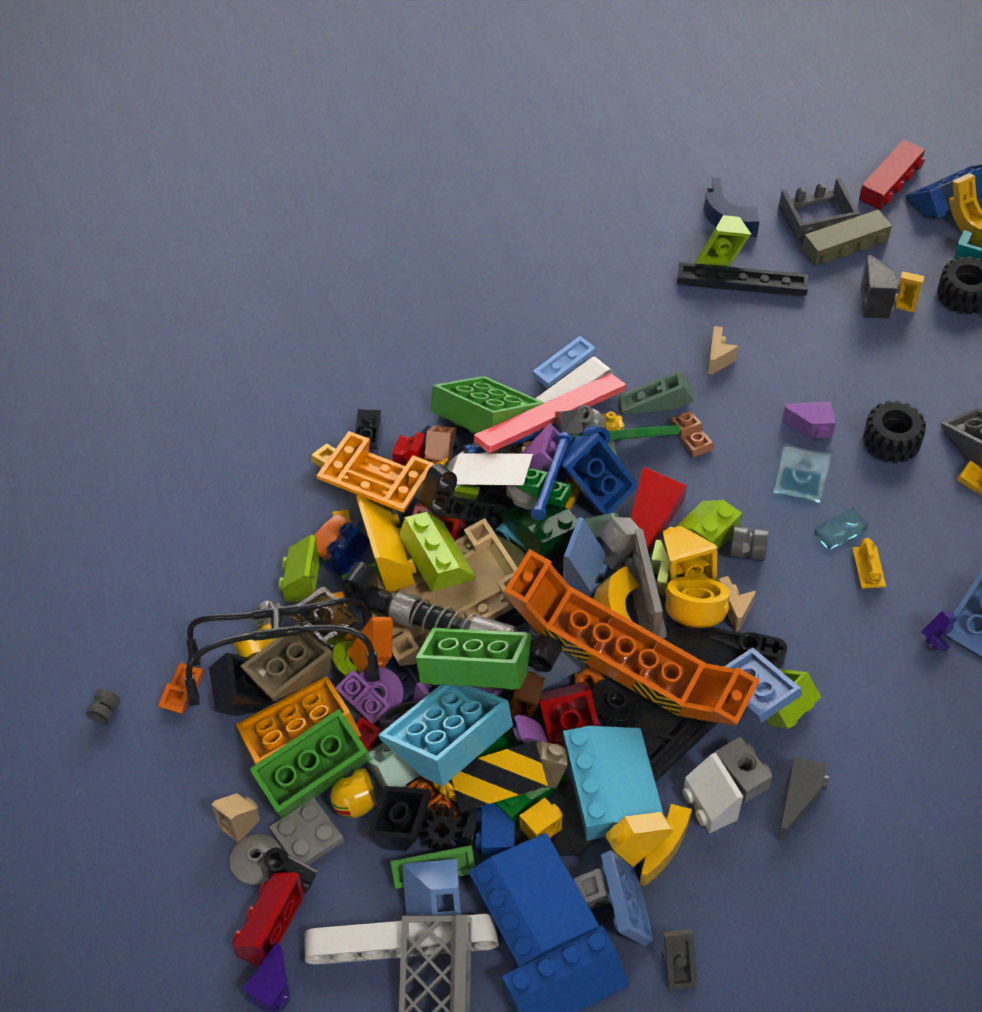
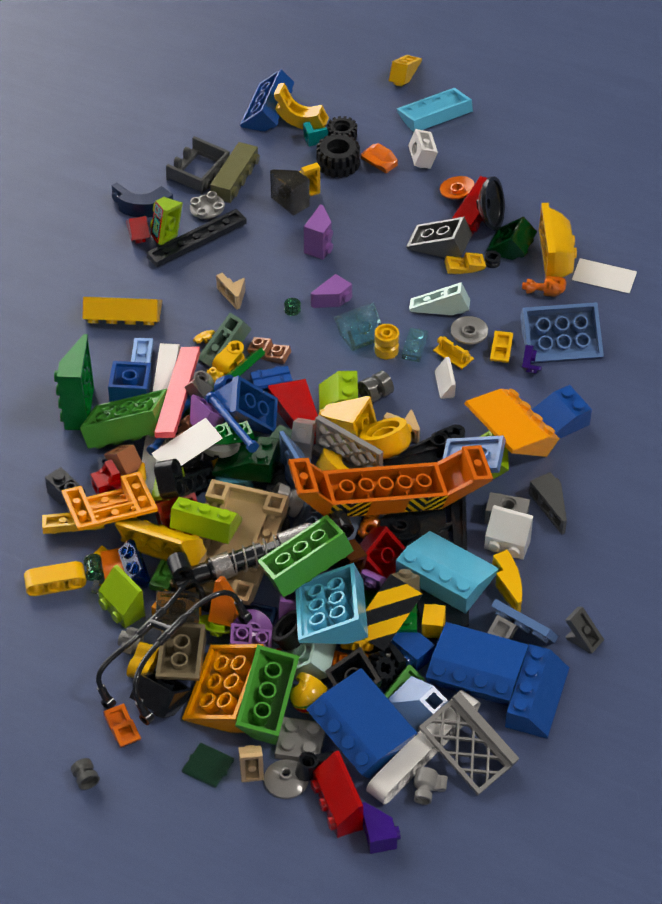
camera: 45 degrees left, 5 degrees down
(207, 785) = (208, 765): none -> clear green piece
(274, 509) = (54, 578): none -> yellow beam
(315, 522) = (93, 567): none -> clear green bush
(357, 866) = (362, 722): none -> blue slope
(363, 976) = (425, 781): none -> light grey piece
(467, 339) = (75, 385): none -> green slope
(527, 371) = (128, 379): none -> blue slope
(599, 302) = (121, 309): none -> yellow slope
(638, 835) = (497, 582): yellow slope -> none
(643, 415) = (229, 357): none -> yellow piece
(644, 377) = (206, 335): none -> yellow plant
(656, 460) = (272, 376): none -> blue brick
(694, 235) = (138, 229): none -> red slope
(760, 412) = (288, 306): none -> clear green bush
(786, 254) = (207, 205): none -> light grey dish
(810, 504) = (386, 341): none -> yellow wheel
(831, 587) = (445, 379): none -> white slope
(839, 683) = (510, 416): none -> light orange slope
(856, 349) = (318, 234): none -> medium lavender slope
(892, 175) = (220, 116): brick -> none
(894, 445) = (388, 267): black tyre -> none
(904, 711) = (564, 411): none -> blue slope
(911, 546) = (469, 330): none -> light grey dish
(915, 505) = (444, 301): none -> light aqua slope
(928, 596) = (501, 346): none -> yellow slope

